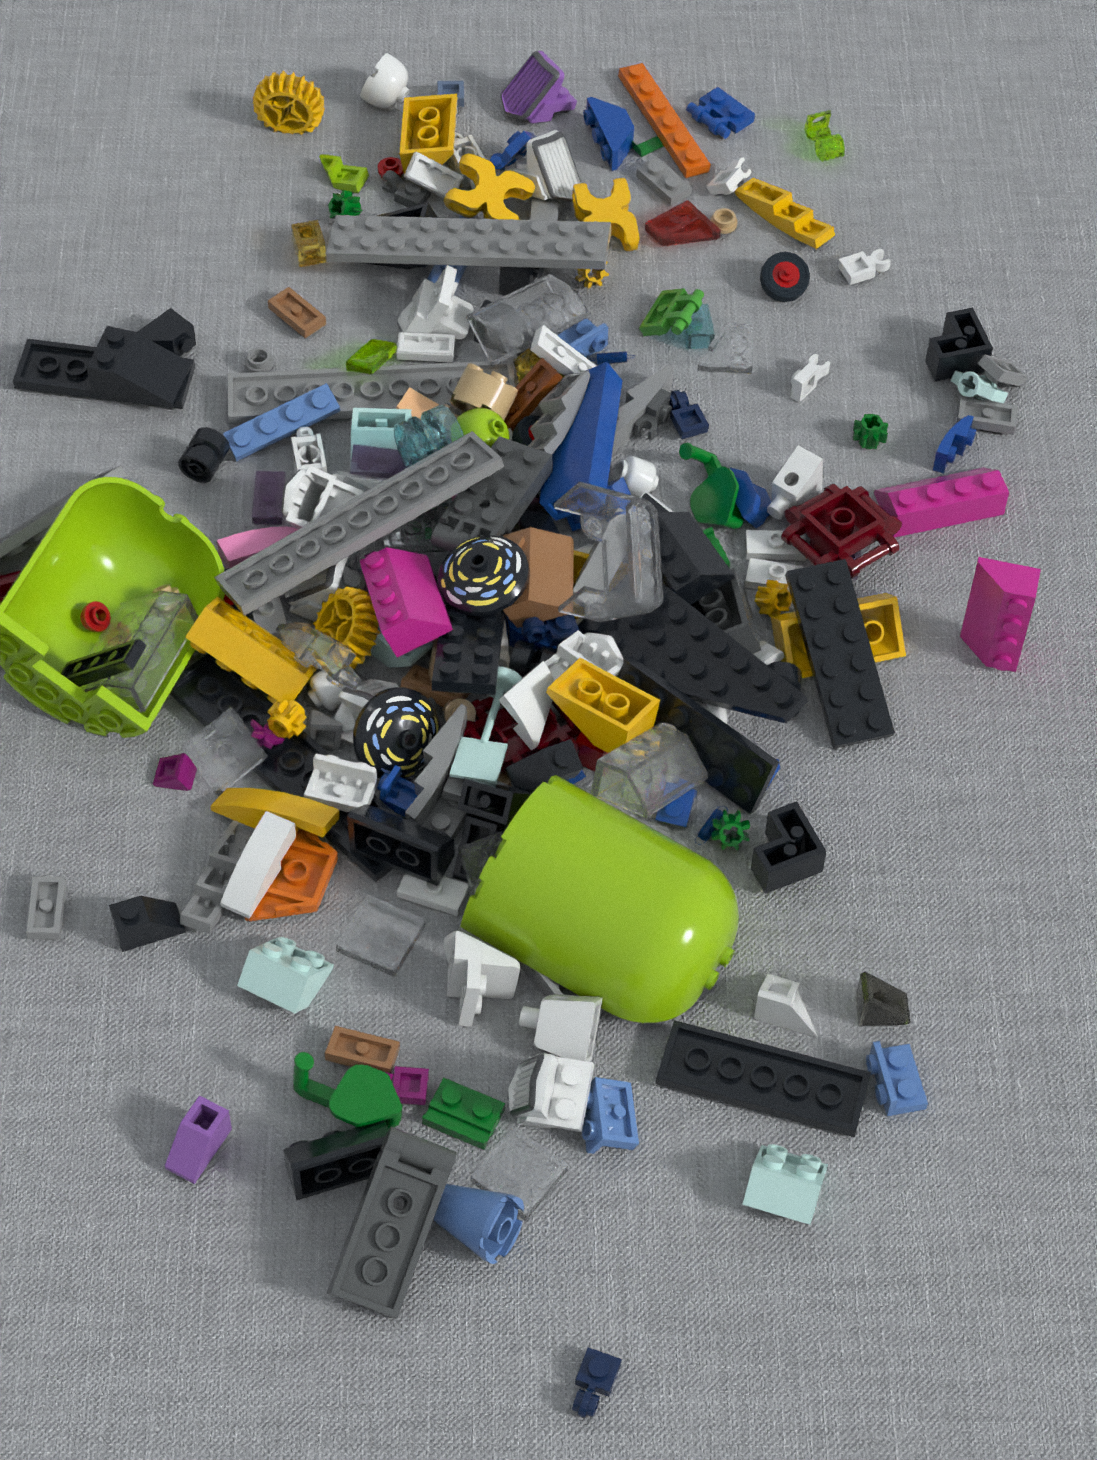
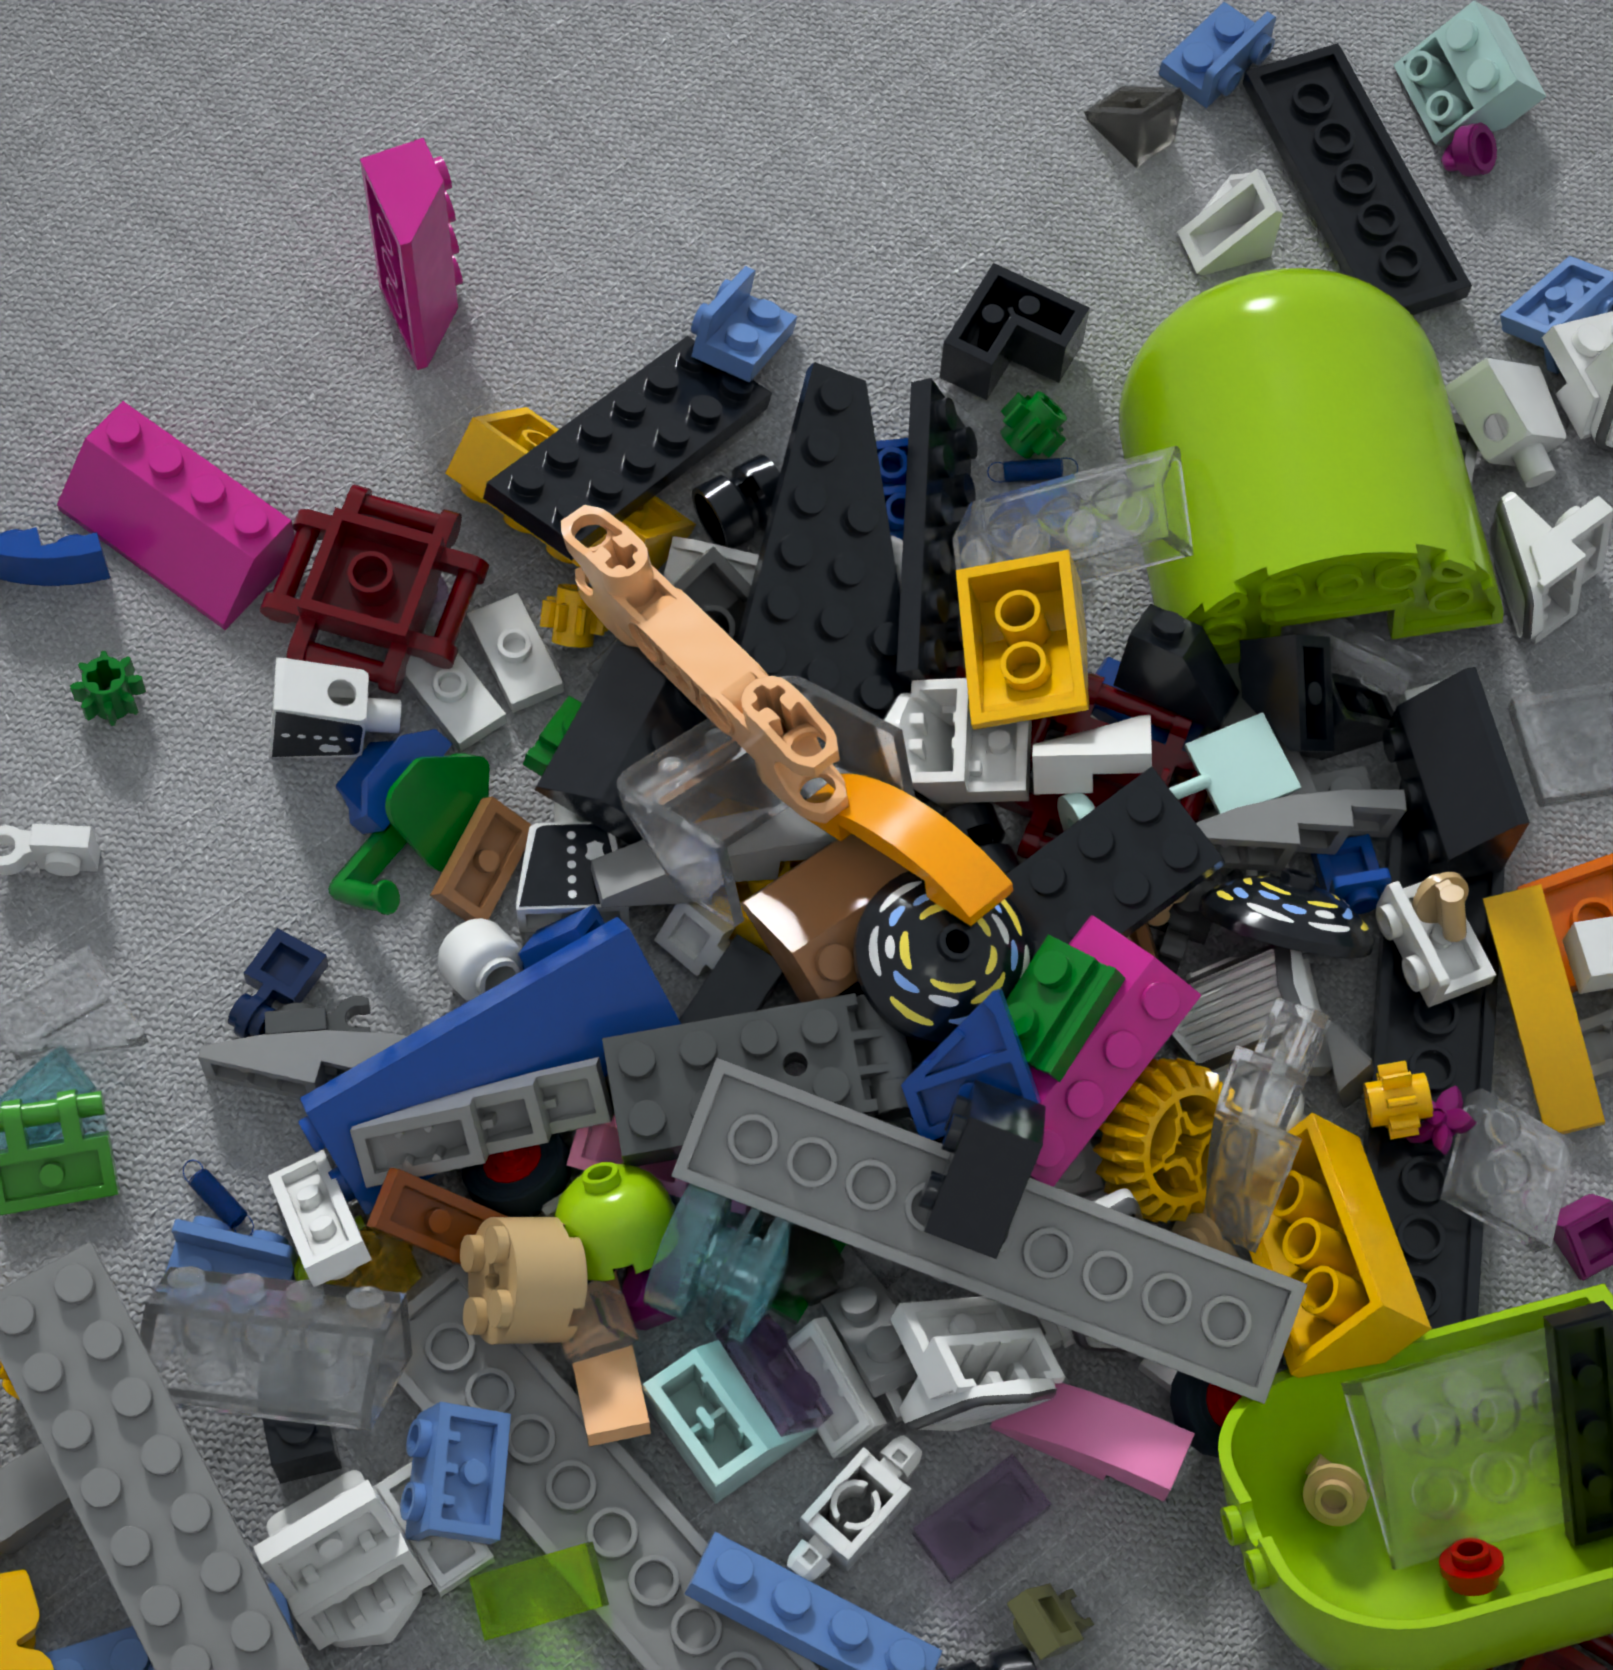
camera: 130 degrees left, 10 degrees up
(211, 478) = (1047, 1620): none -> olive plate
(347, 786) = (1442, 901): none -> tan plate
(382, 513) = (992, 1154): none -> black brick
(421, 545) = (978, 1049): none -> blue wing
(425, 587) = (1060, 1004): none -> green plate
(432, 349) = (456, 1473): none -> medium blue bracket
(535, 573) = (922, 841): none -> light orange slope
(629, 550) = (706, 664): none -> light nougat piece
(679, 498) = (482, 861): none -> medium nougat plate
(739, 1149) = (1471, 151): none -> magenta tile
(877, 746) = (740, 330): none -> medium blue bracket

